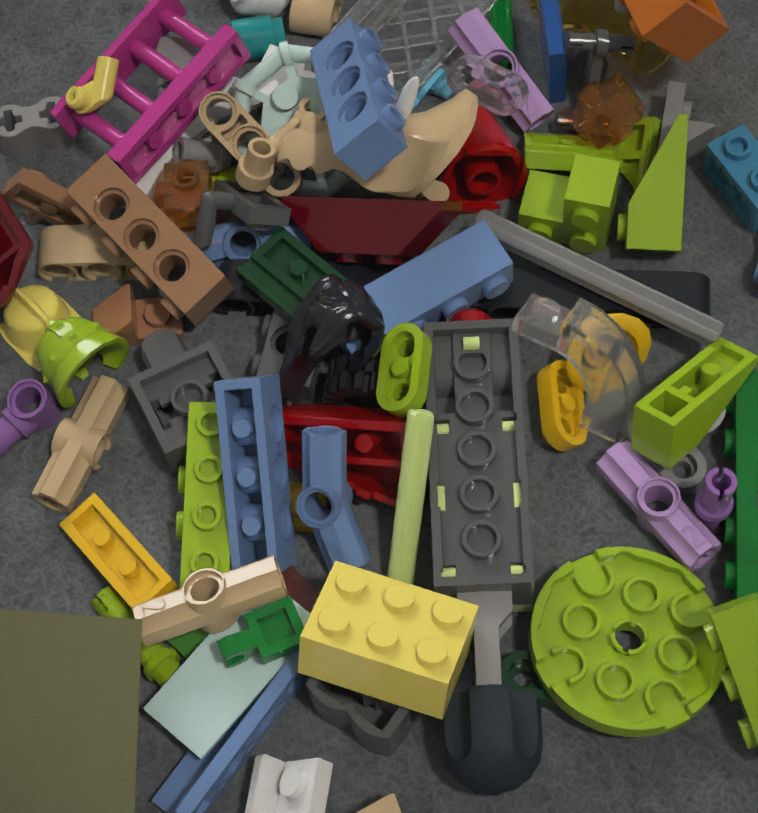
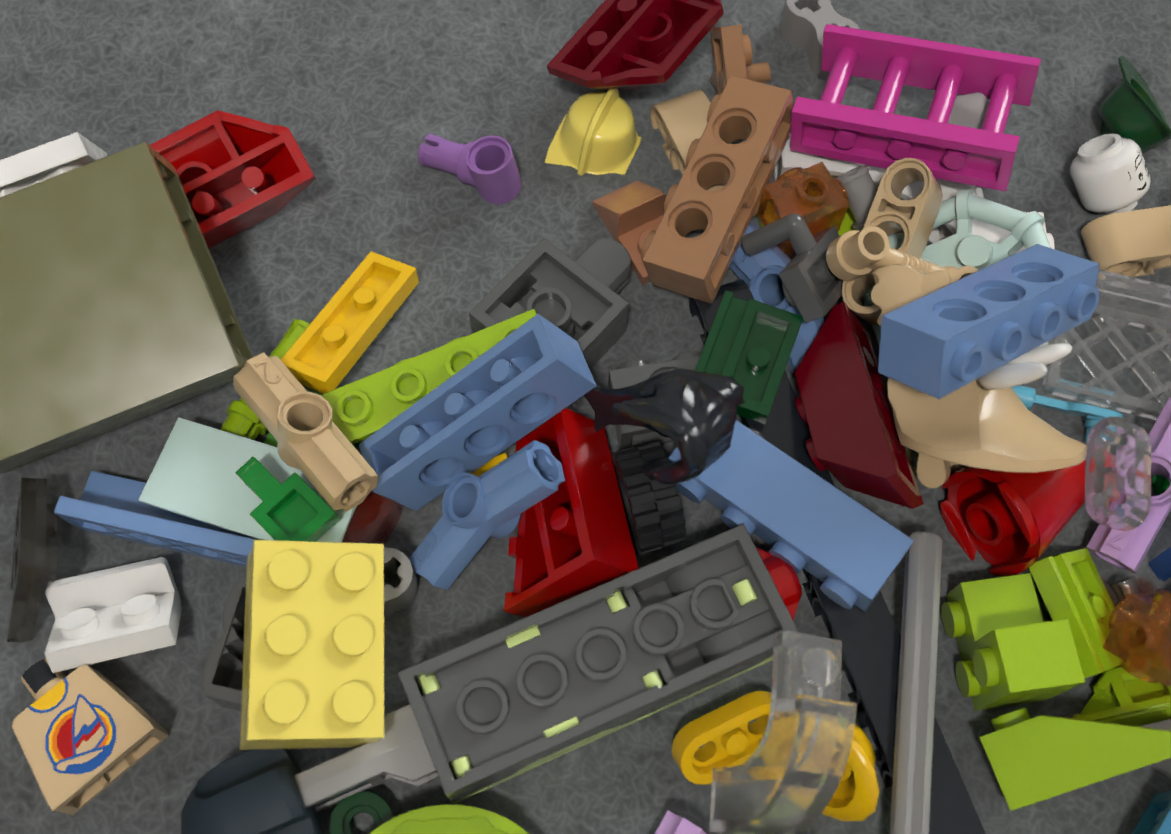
camera: 60 degrees right, 5 degrees up
(71, 347) = (565, 172): lime helmet -> none
(80, 444) = (466, 232): tan piece -> none
(96, 92) = (873, 55): light yellow arm -> none
(259, 33) = (1050, 191): teal brick -> none
(404, 373) = (664, 526): lime plate -> none
(410, 495) = (514, 601): yellowish green axle -> none

